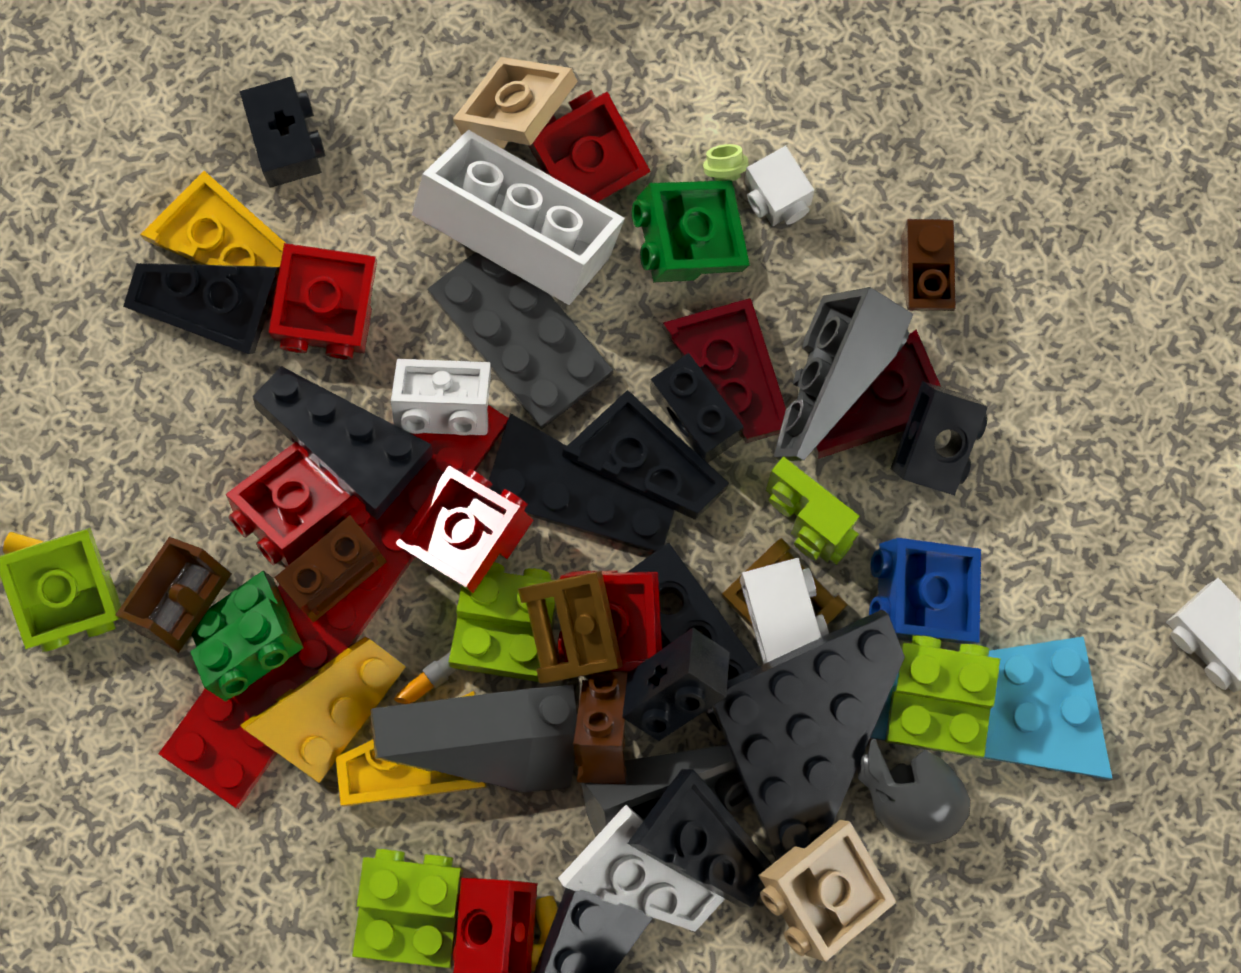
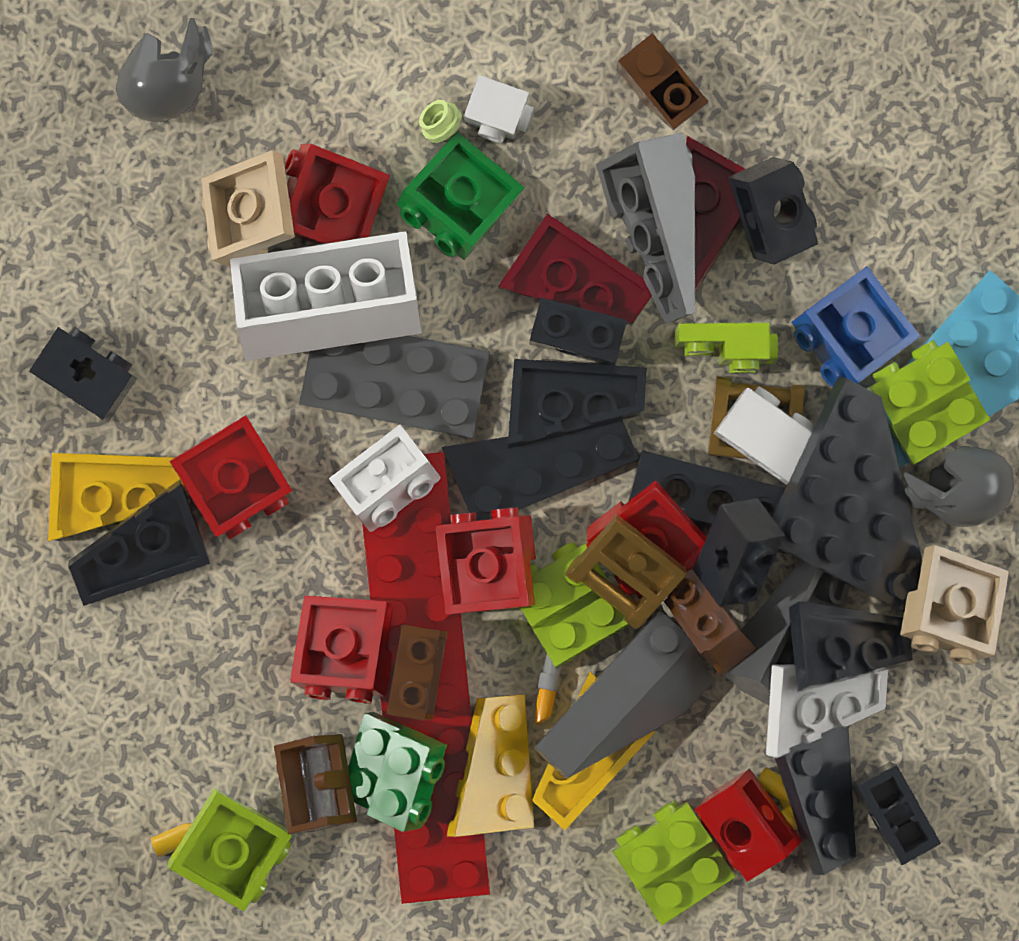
camera: 40 degrees left, 10 degrees up
(354, 445) = (354, 567): black wing -> none

